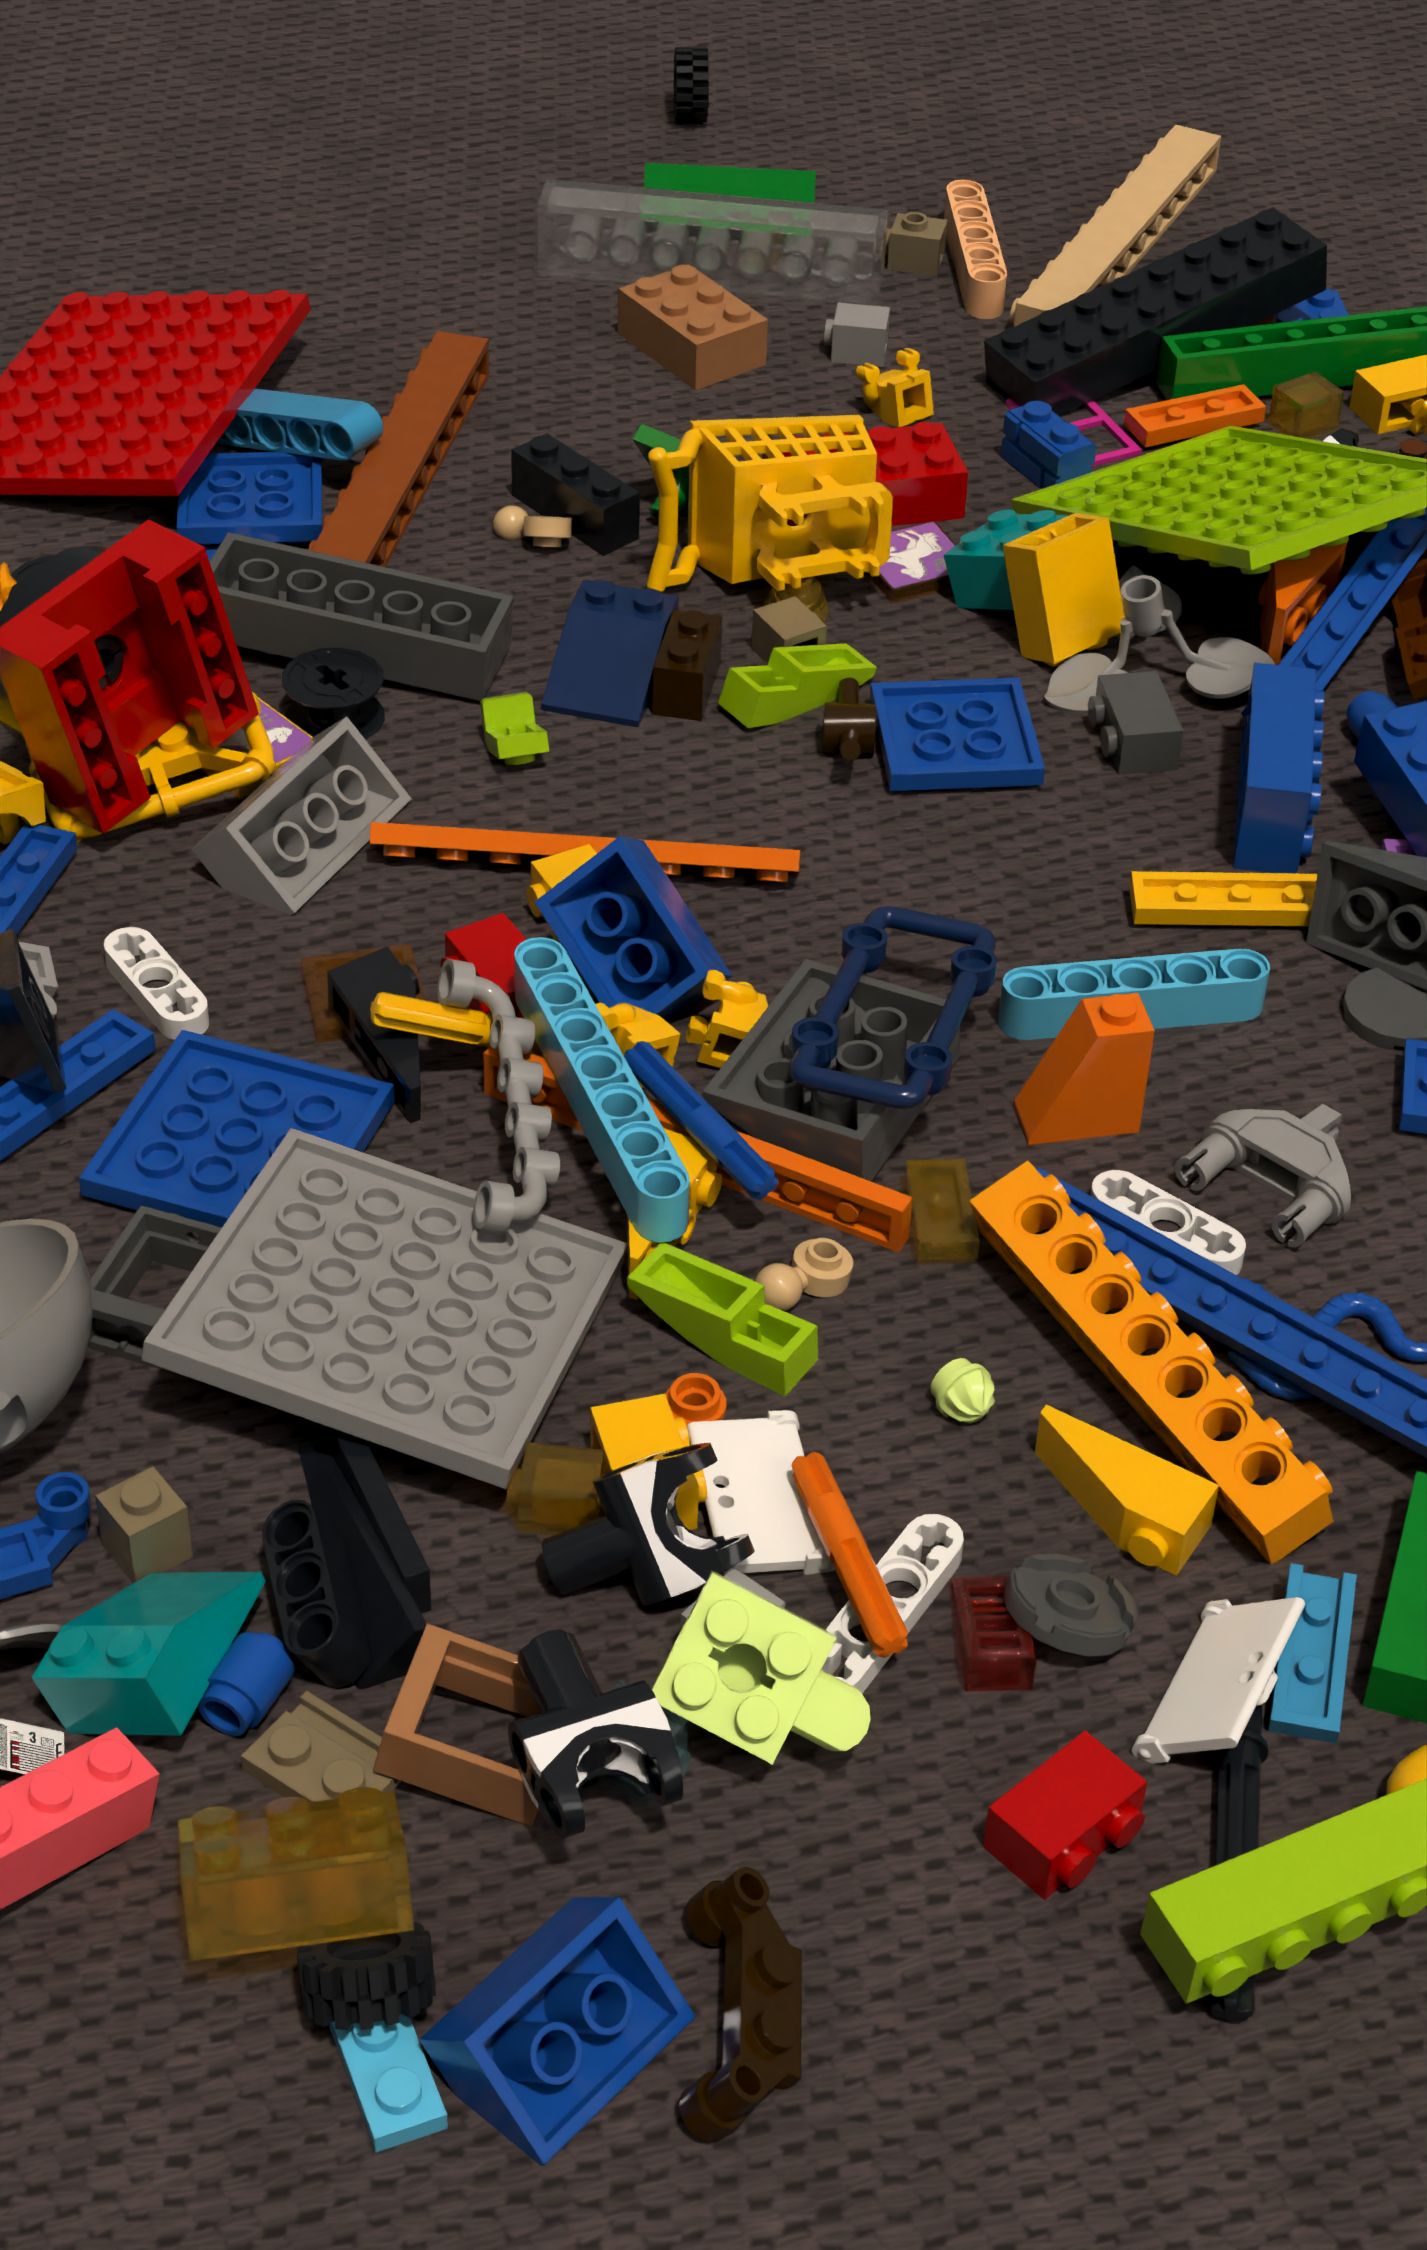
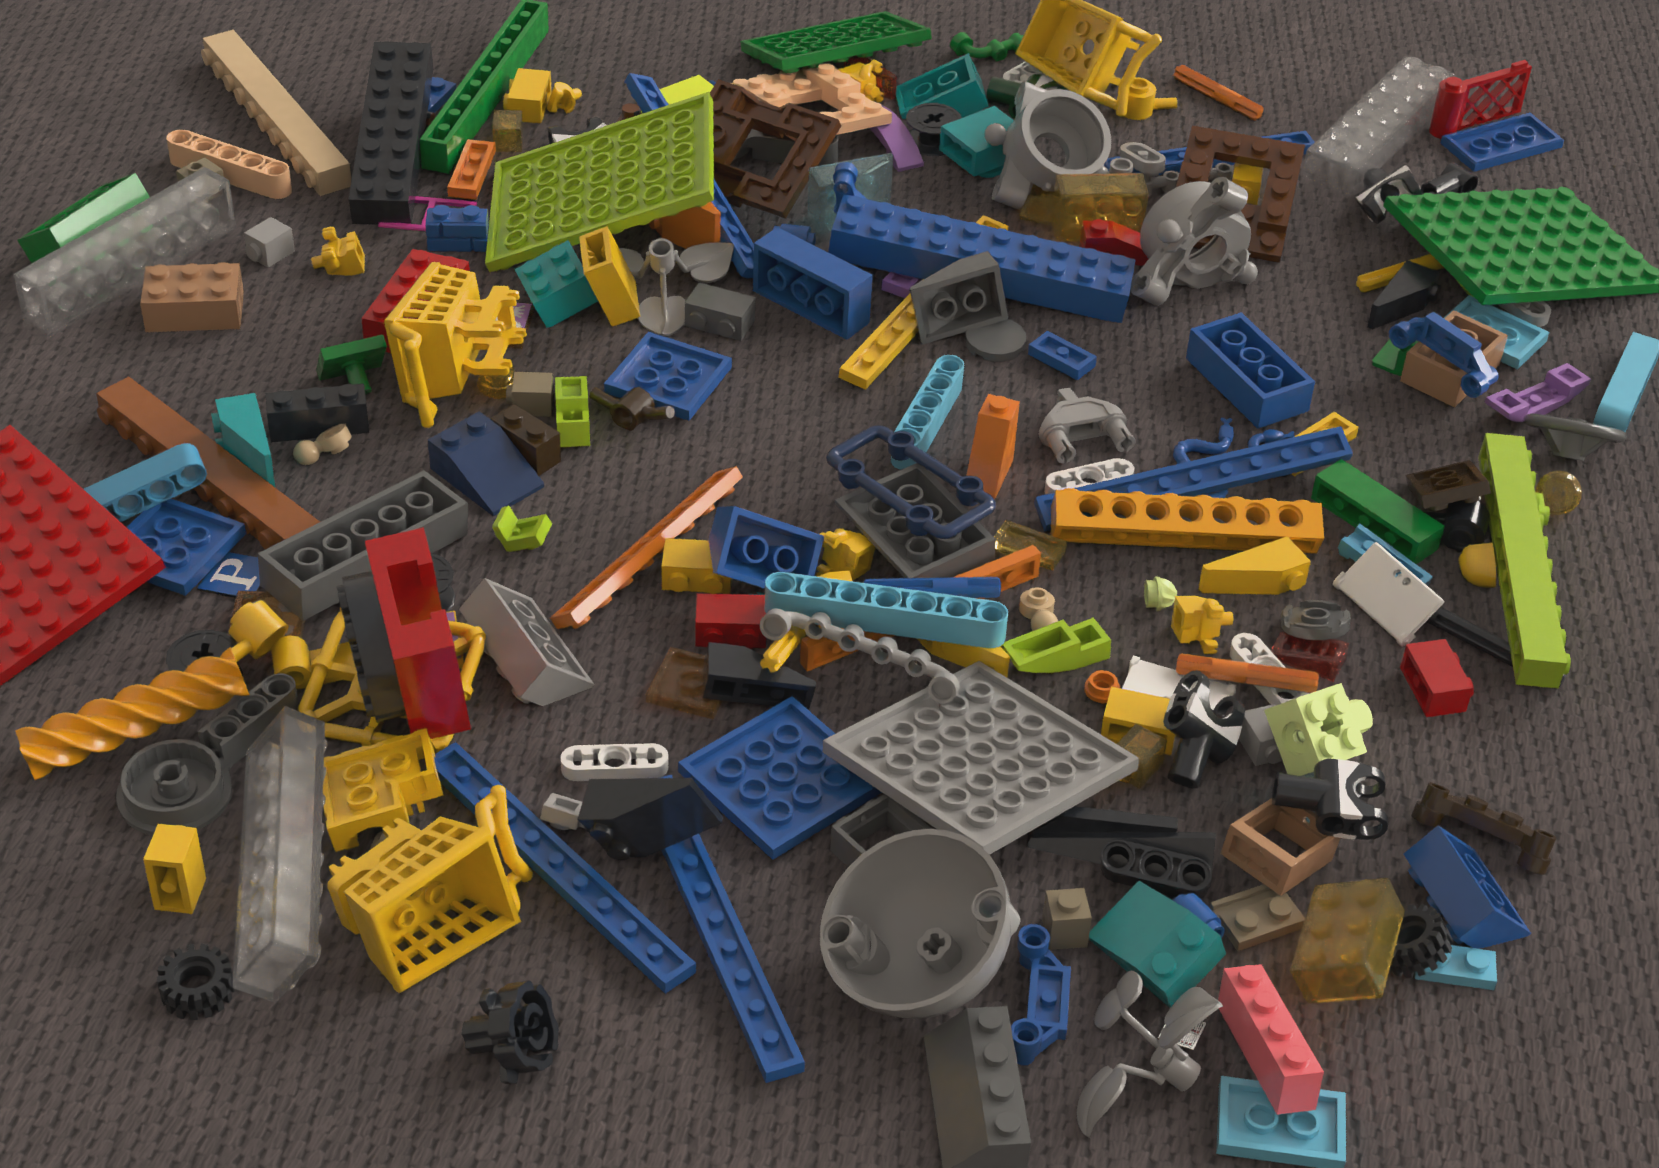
camera: 60 degrees left, 0 degrees up
(450, 464) = (244, 433): none -> teal slope
(935, 1456) = (1199, 620): none -> yellow piece

